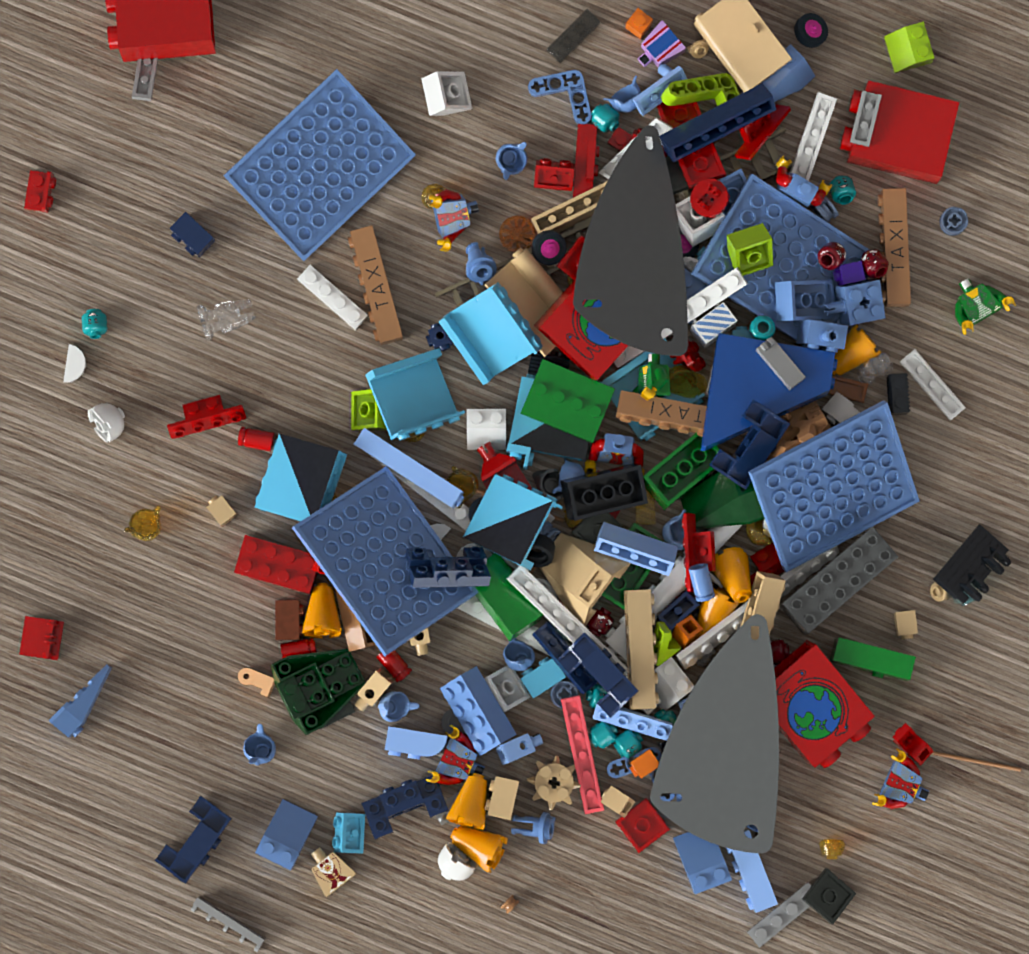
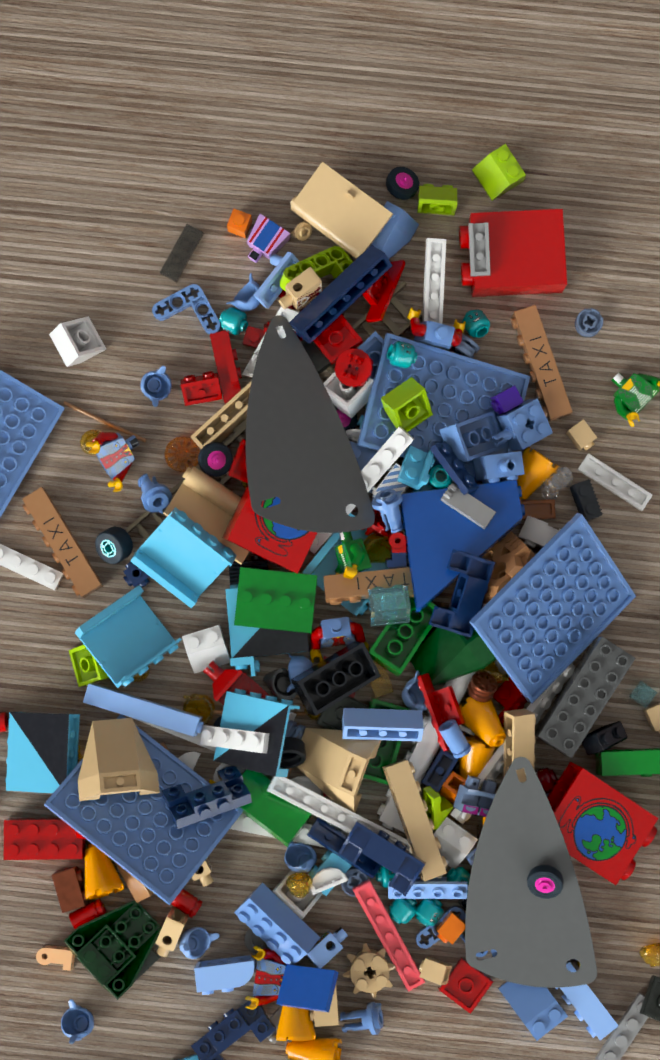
camera: 15 degrees left, 0 degrees up
(371, 508) = (116, 761): none -> tan wedge
(426, 302) = (114, 545): none -> black wheel
(449, 179) = (104, 421): none -> medium nougat piece
(490, 520) = (234, 739): none -> white plate
(491, 776) = (307, 988): none -> blue tile
(511, 679) = (299, 884): none -> clear yellow cone
(539, 682) = (327, 878): none -> white tile
(600, 622) = (369, 802): dark red head -> none
(676, 437) = (389, 605): none -> clear light blue slope
(681, 108) = (301, 290): none -> tan torso
(700, 388) = (398, 551): none -> leg
(702, 645) = (474, 799): none -> sand blue hips
(703, 339) = (387, 502): none -> medium blue piece
(741, 312) = (416, 467): none -> medium azure bracket
(742, 543) = (482, 688): none -> copper wheel
(747, 740) = (545, 881): none -> black wheel
(759, 198) = (401, 354): none -> teal head
(778, 323) = (454, 468): none -> dark blue plate
(831, 255) = (485, 388): dark red head -> none
(840, 56) = (437, 200): none -> lime slope
(846, 626) = (604, 738): none -> black brick
(874, 263) = (527, 384): dark red head -> none
(897, 598) = (643, 694): none -> clear light blue plate
(913, 330) = (582, 436): none -> tan brick

